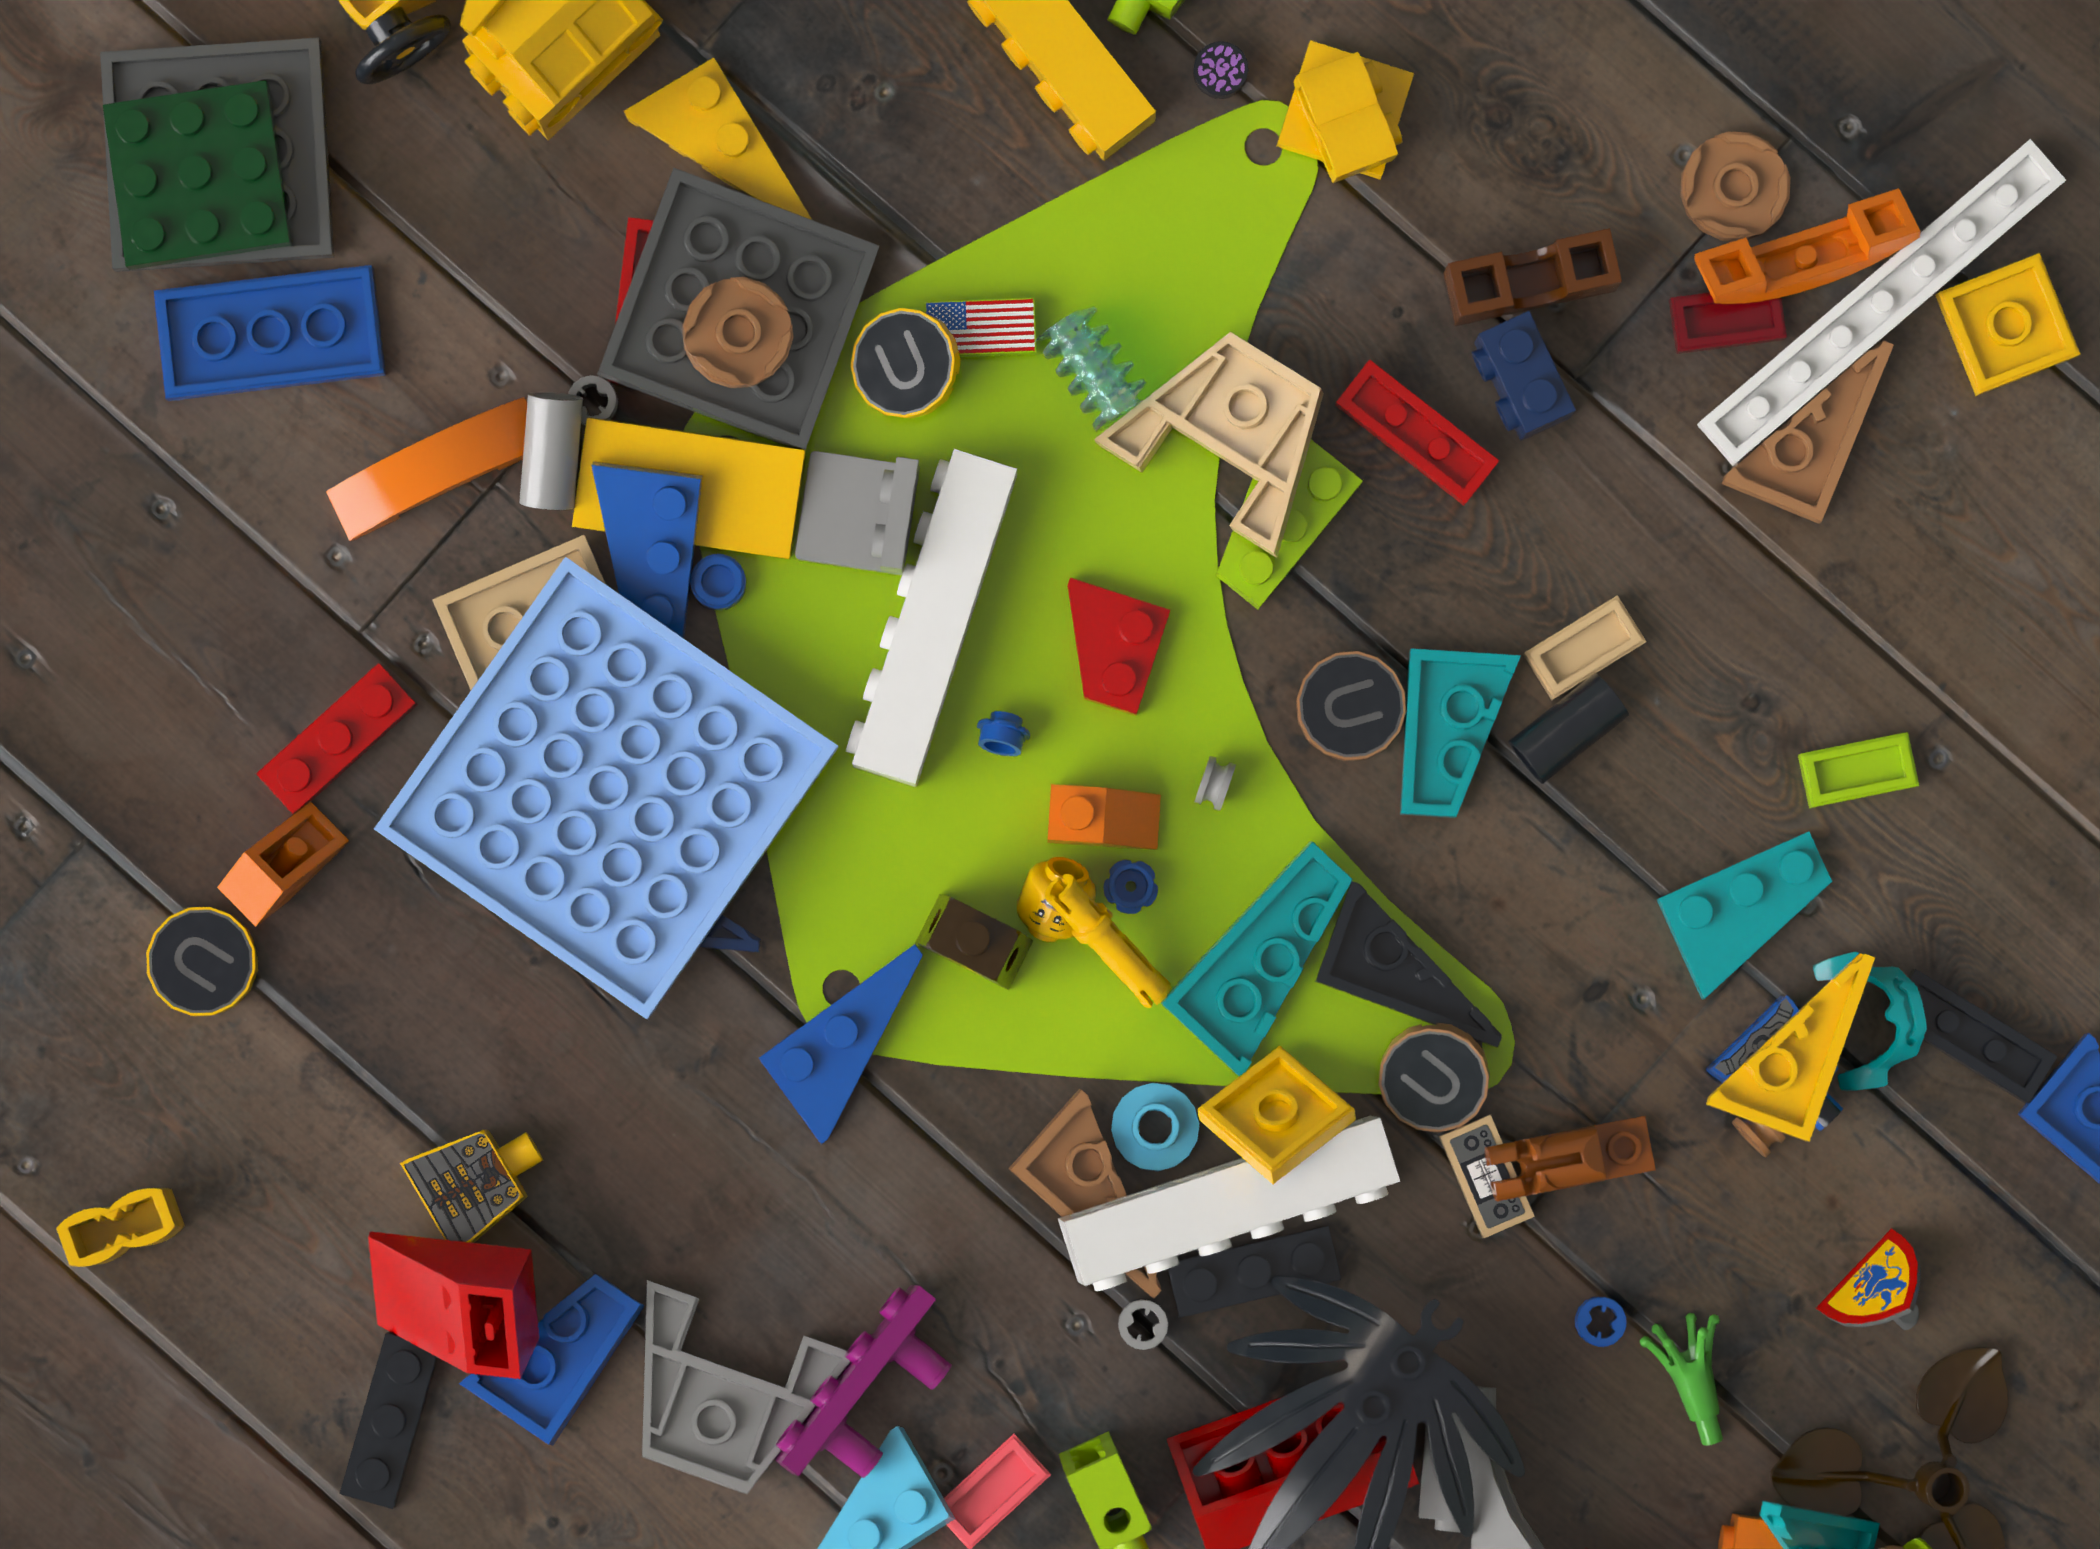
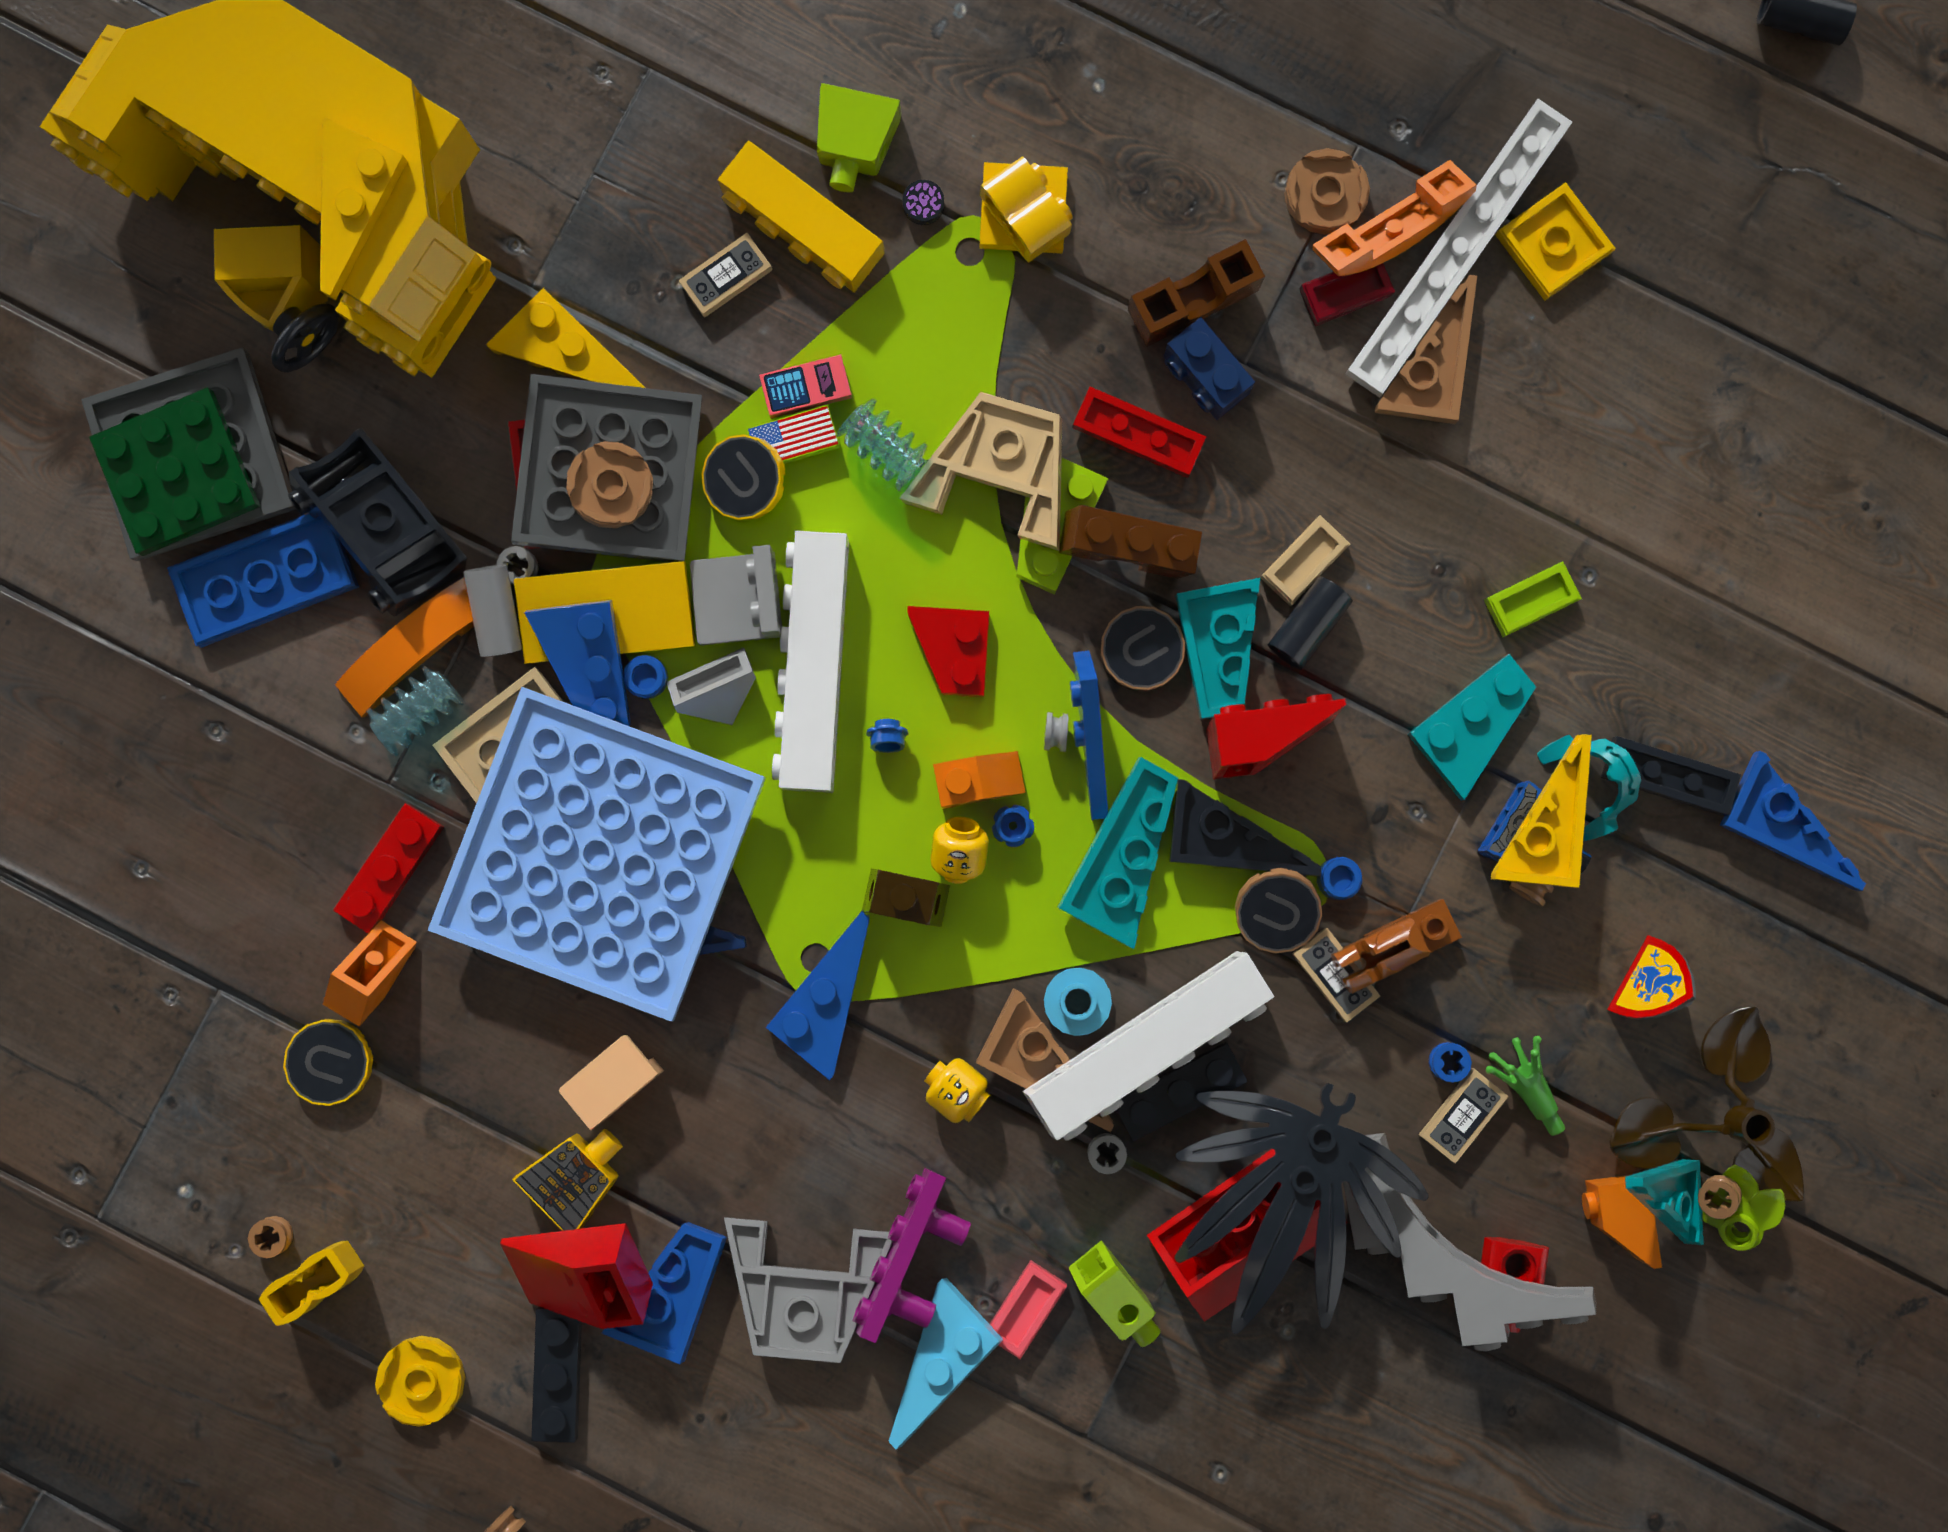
camera: 10 degrees left, 0 degrees up
(83, 1175) = (285, 1234): none -> medium nougat bush
(218, 1385) = (420, 1381): none -> yellow tile
(420, 548) = (413, 709): none -> clear light blue piece
(434, 303) = (378, 523): none -> black piece
(549, 1074) = (609, 1081): none -> light nougat panel
(802, 618) = (714, 689): none -> light grey slope
(947, 98) = (725, 275): none -> tile
(976, 1196) = (956, 1090): none -> yellow head
(1012, 266) = (805, 386): none -> tile
(1094, 927) = (994, 864): yellow pin -> none
(1255, 793) = (1089, 732): none -> blue wing
(1276, 1114) = (1168, 970): yellow tile -> none
(1368, 568) = (1121, 537): none -> reddish brown arch
(1461, 856) = (1250, 740): none -> red slope
(1522, 1057) = (1339, 878): none -> blue tile
(1599, 1392) = (1463, 1115): none -> tile

